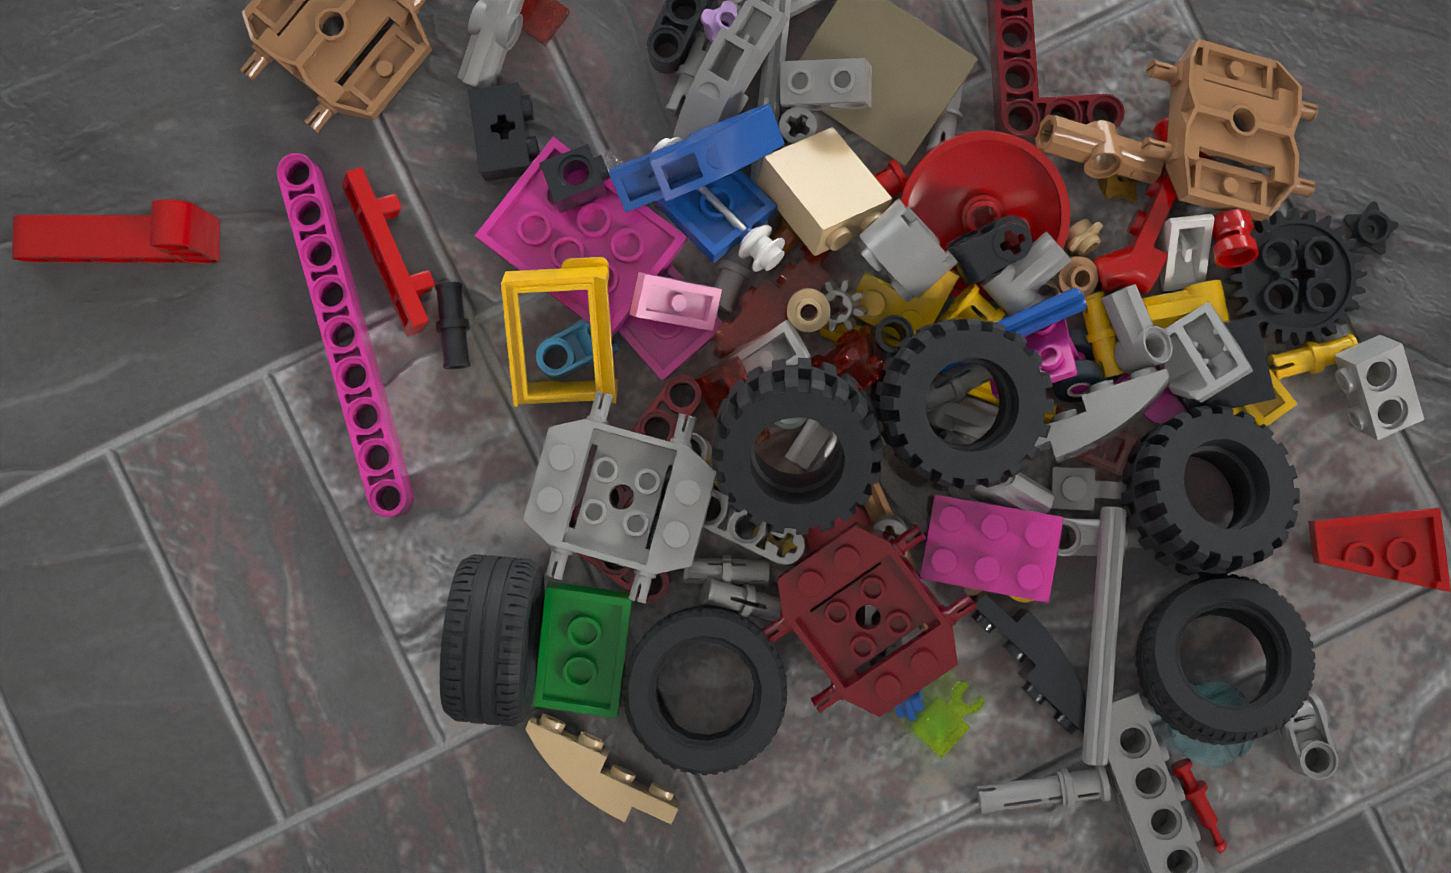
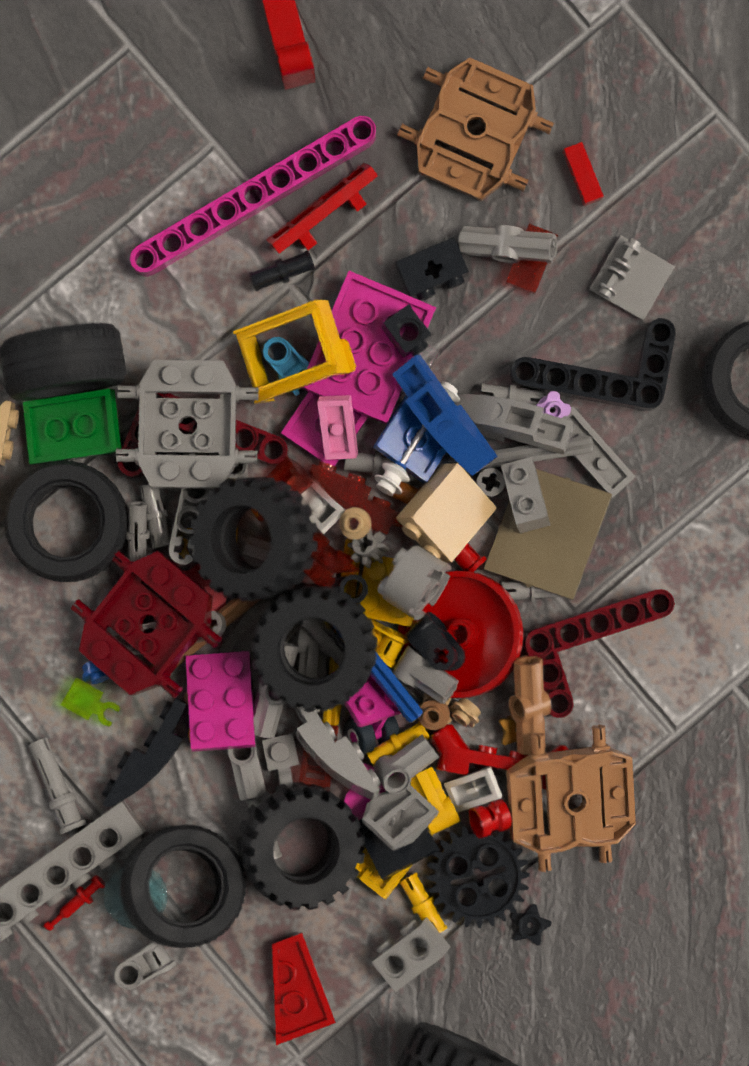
camera: 75 degrees right, 0 degrees up
(1104, 636) = (177, 796): light grey axle -> none

